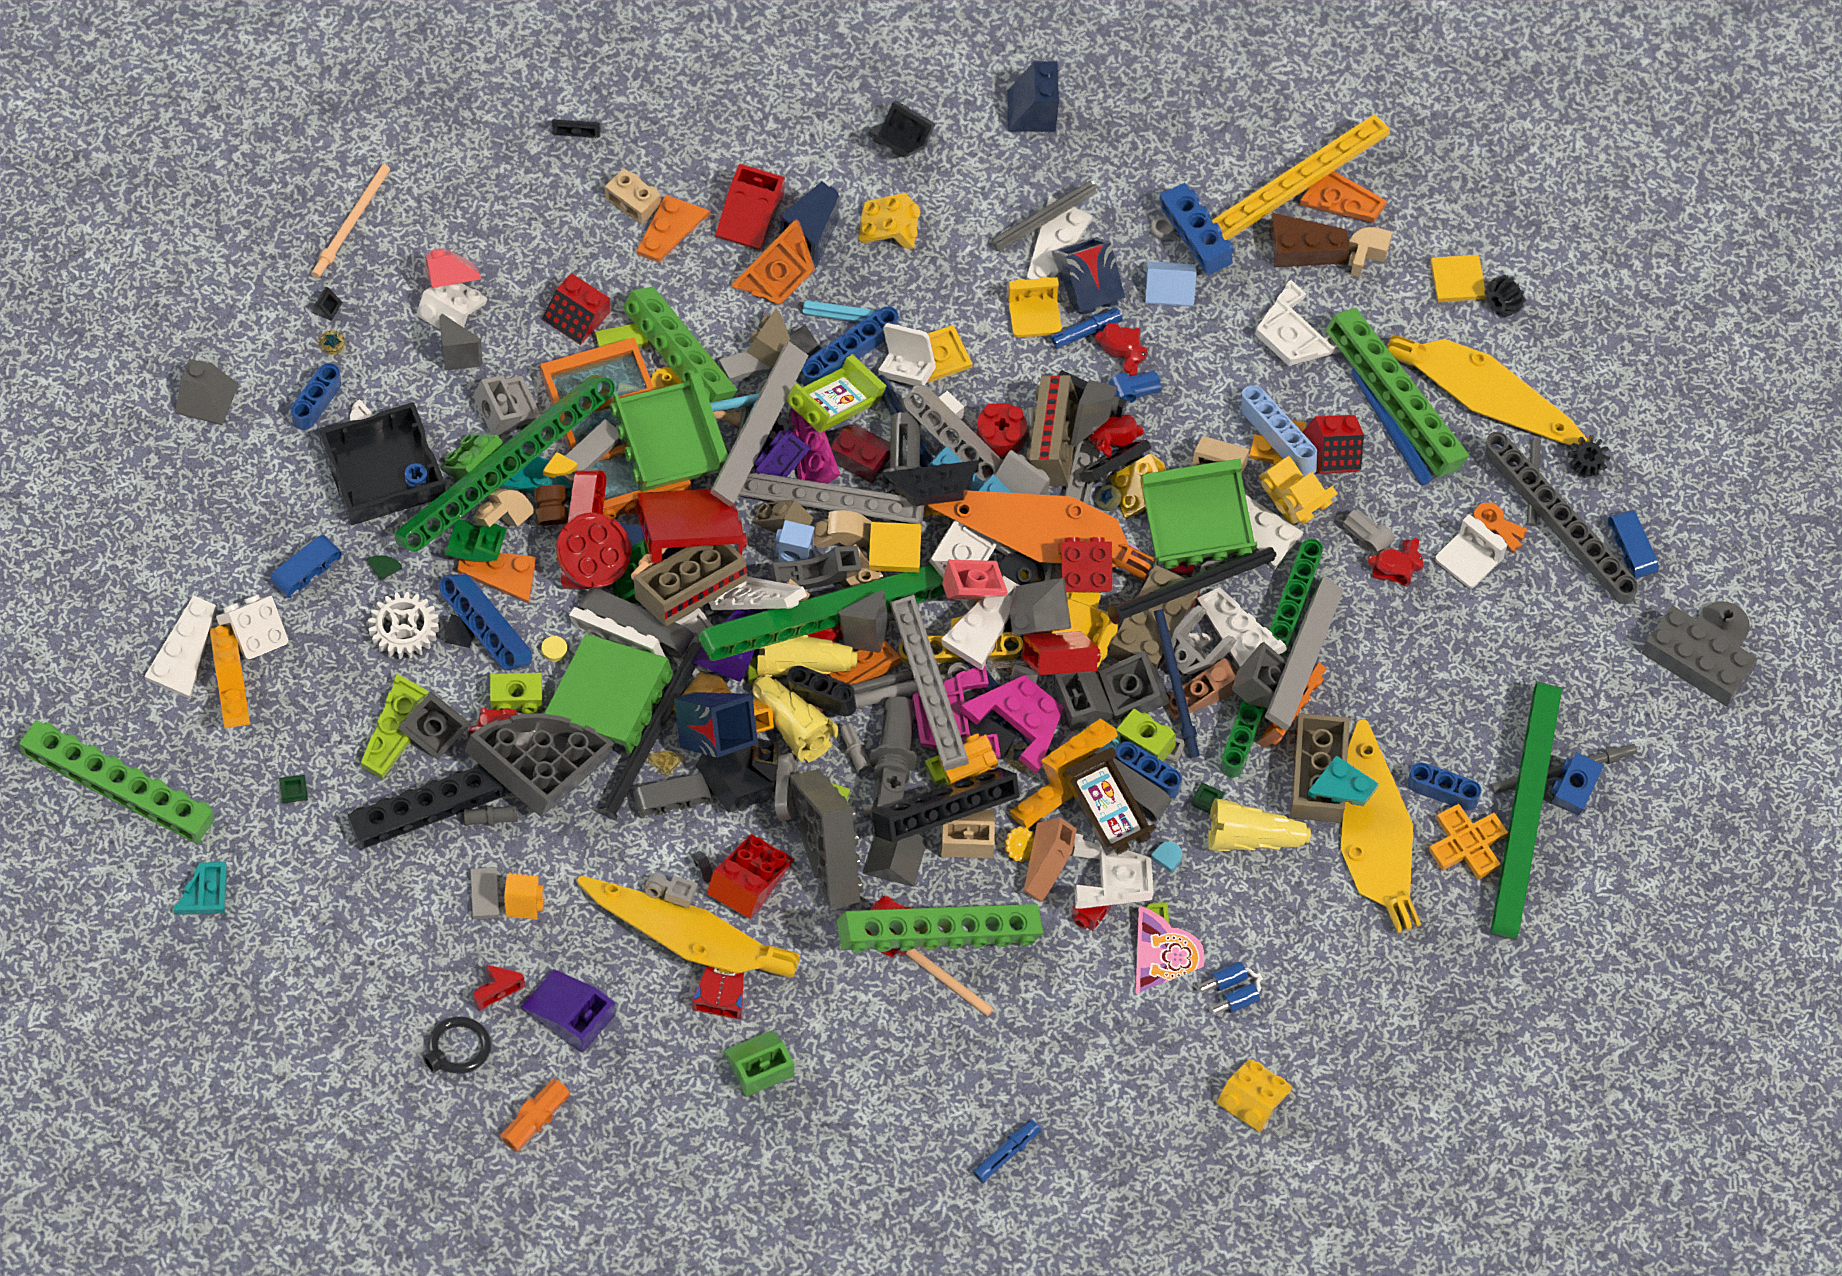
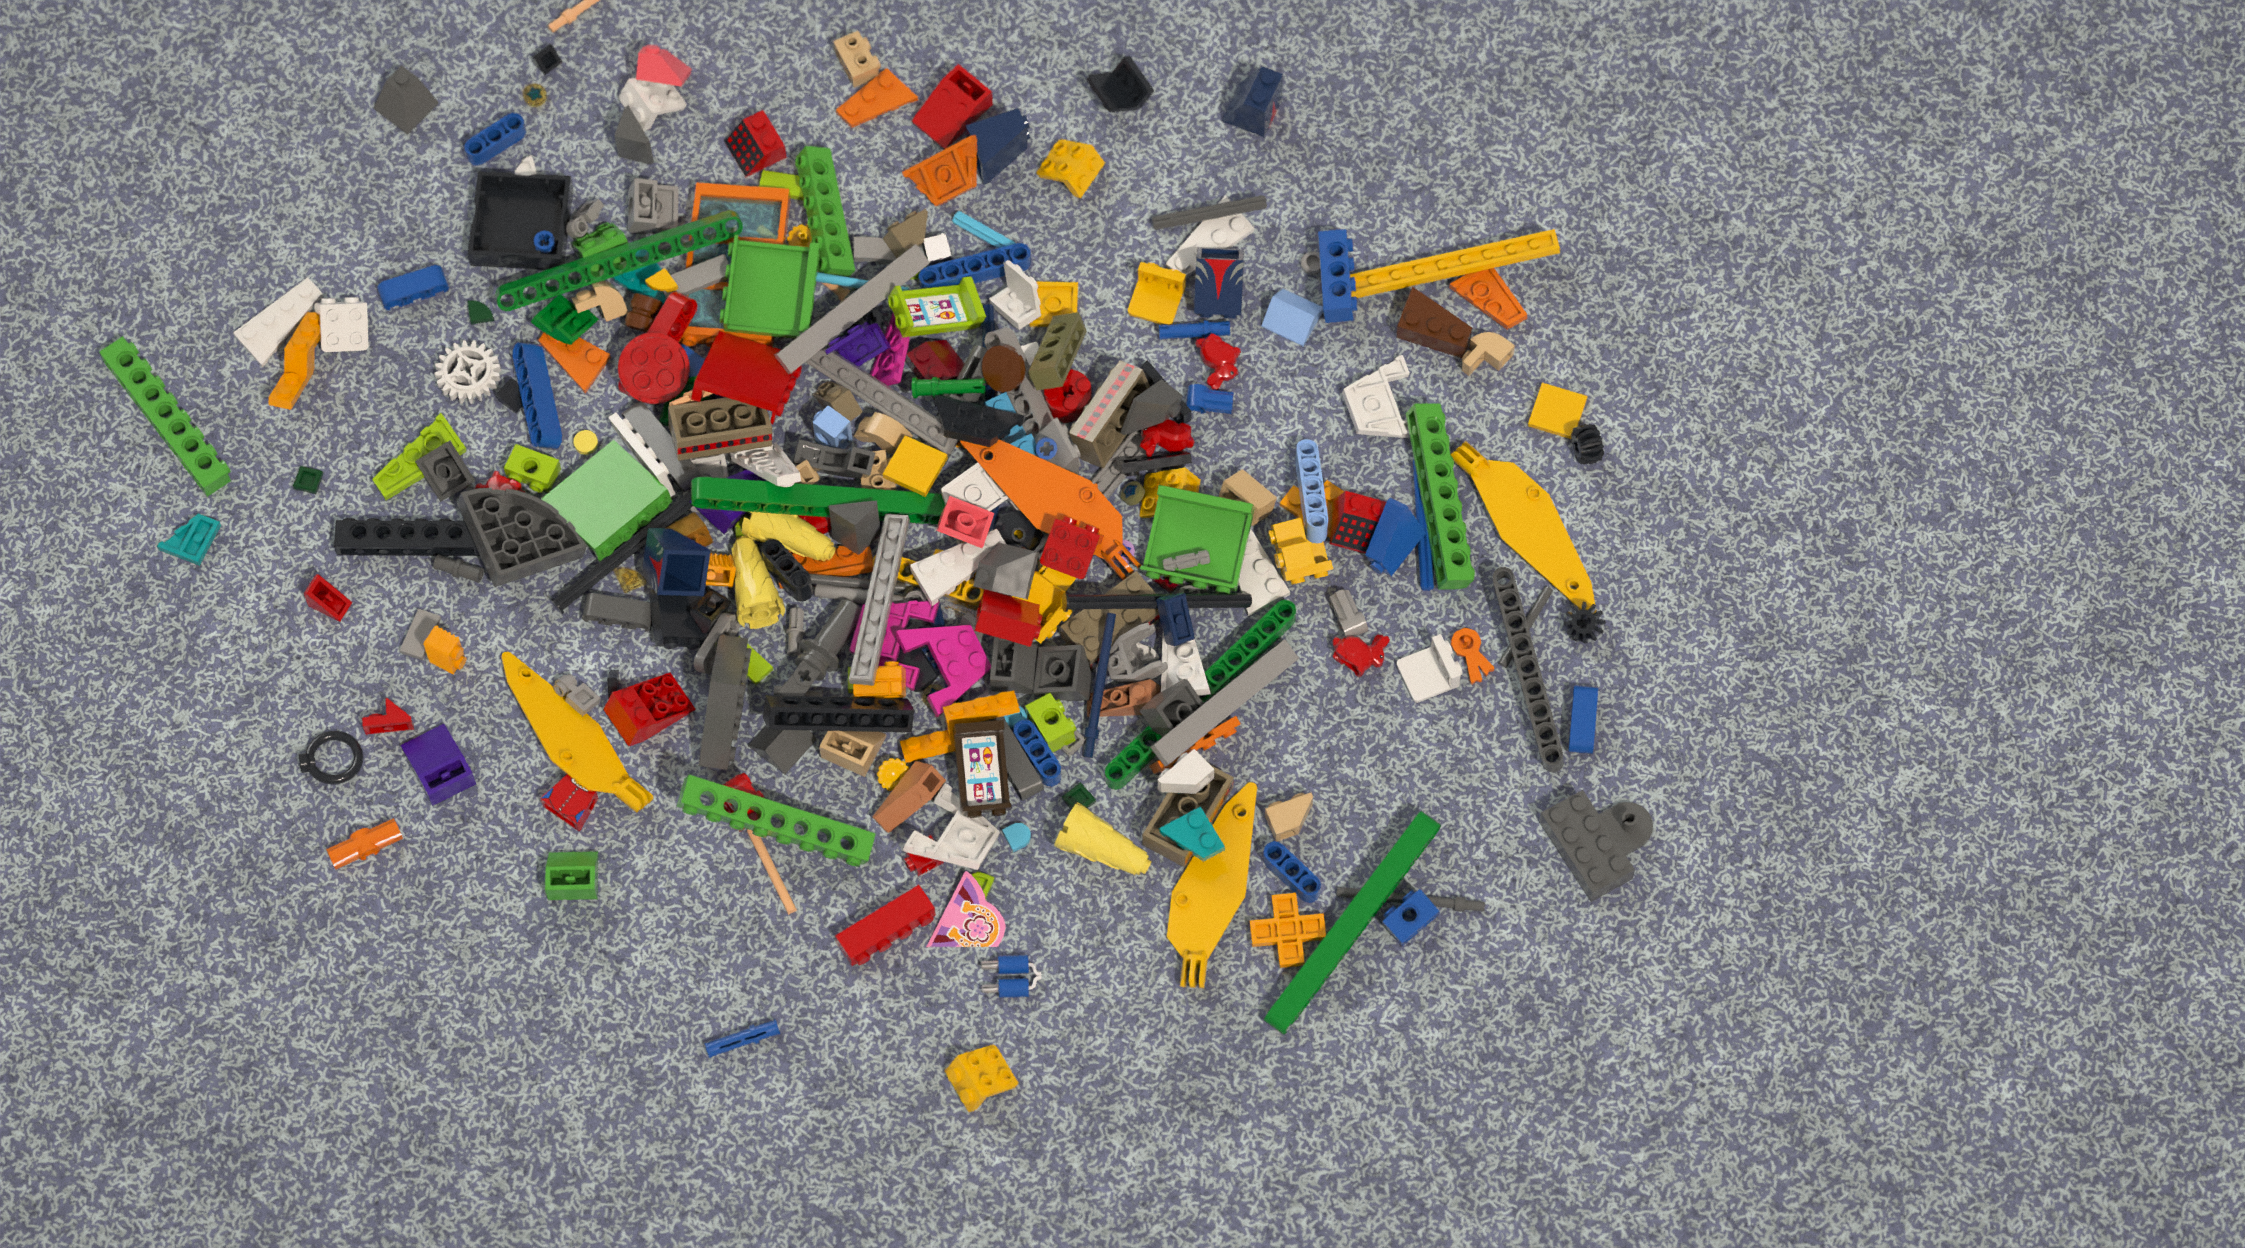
camera: 30 degrees right, 5 degrees up
(374, 894) = (326, 598): none -> red slope
(442, 437) = (587, 213): none -> light grey plate
(877, 465) = (935, 386): none -> green pin
(936, 423) = (1003, 368): none -> reddish brown tile
(974, 391) = (1057, 351): none -> olive brick
(1021, 486) = (1040, 443): none -> blue bush
(1089, 988) = (886, 925): none -> red brick
(1198, 537) = (1186, 561): none -> light grey axle
(1218, 594) = (1175, 619): none -> dark blue slope
(1310, 730) = (1187, 776): none -> white slope
(1376, 444) = (1393, 538): none -> blue slope
(1414, 737) = (1289, 816): none -> tan slope

